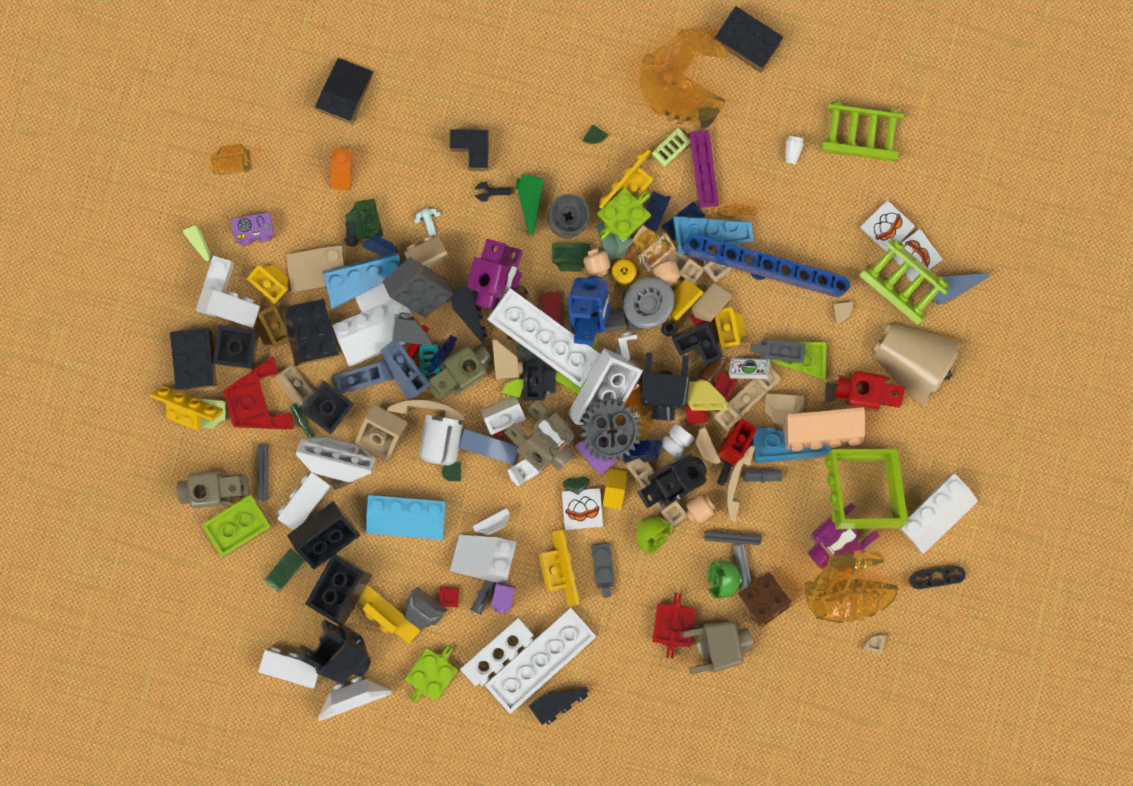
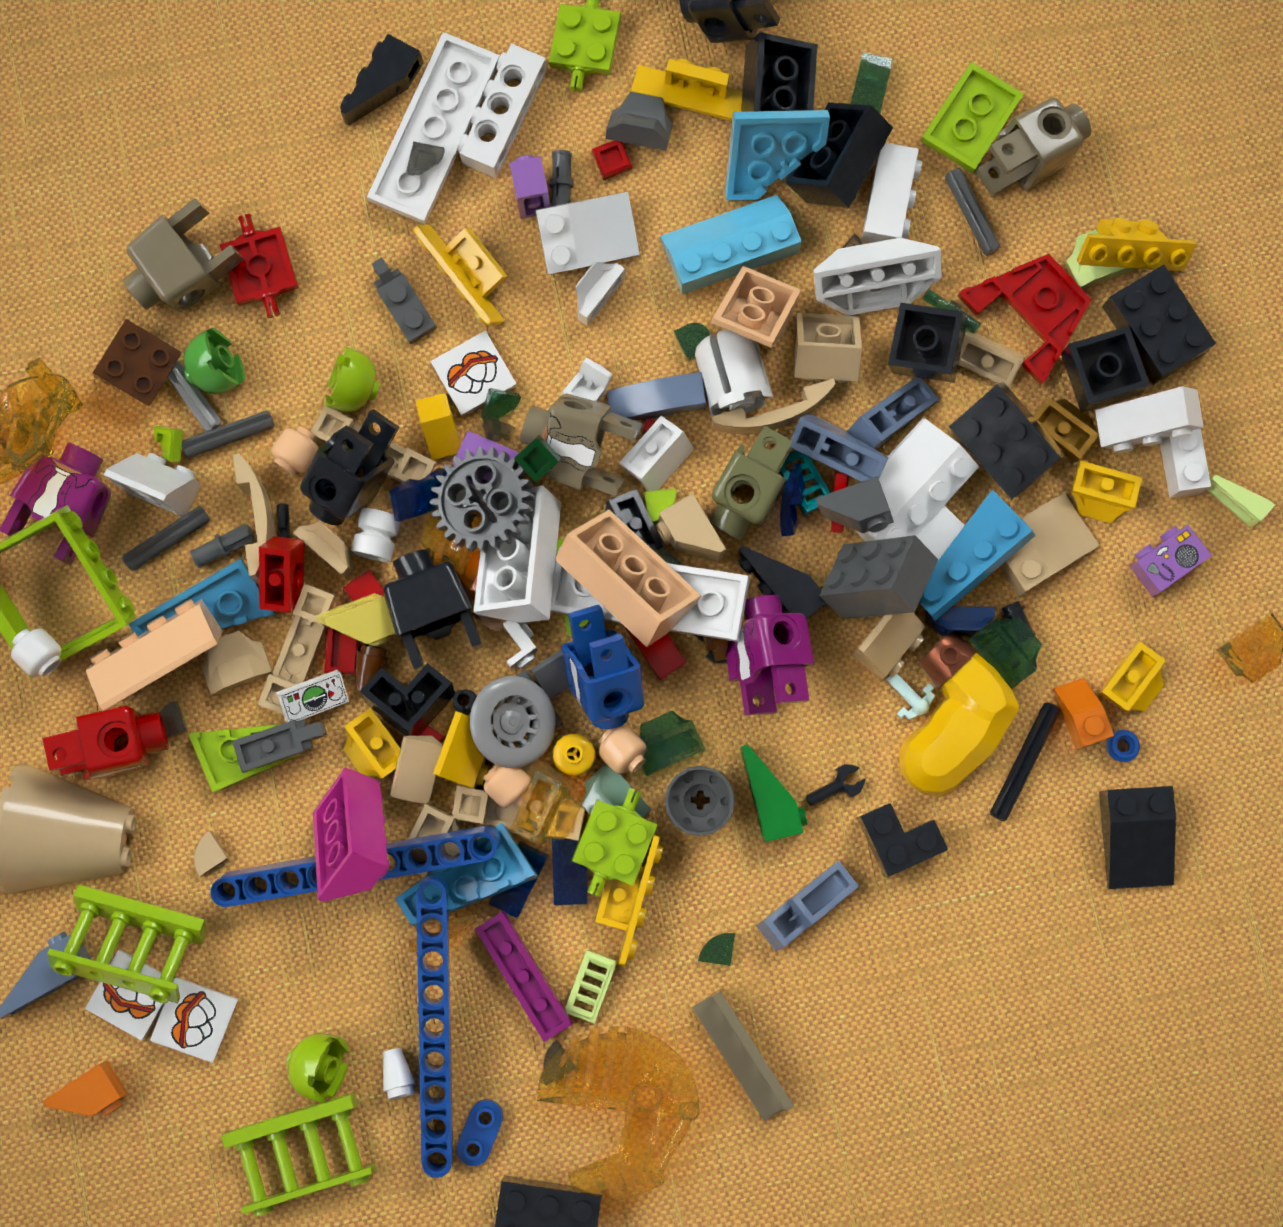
camera: 155 degrees right, 5 degrees down
(304, 173) = (1135, 679): none -> yellow slope
(324, 137) = (1132, 746): none -> blue plate
(360, 556) = (770, 148): none -> medium azure plate
(384, 158) = (1025, 761): none -> black axle
(408, 191) = (964, 725): none -> yellow piece
(412, 467) = (757, 307): none -> light nougat slope
(537, 136) = (807, 906): none -> sand blue slope
(552, 349) = (626, 577): none -> light nougat slope
(554, 642) = (423, 157): none -> clear smoke tile
(570, 436) = (537, 458): none -> dark green plate
(584, 469) = (495, 429): none -> clear smoke tile
(608, 75) = (742, 1055): none -> dark tan fence
(762, 155) = (430, 1041): none -> blue beam
(762, 280) = (349, 837): none -> dark pink slope
(763, 99) = (480, 1133): none -> blue plate
(766, 547) = (170, 442): none -> lime tile
(782, 524) = (155, 482): none -> white slope
(791, 494) = (166, 538): none -> dark grey axle
(833, 172) = (317, 1066): none -> lime cylinder
(886, 456) = (36, 652): none -> white head
(958, 213) = (90, 1093): none -> orange slope

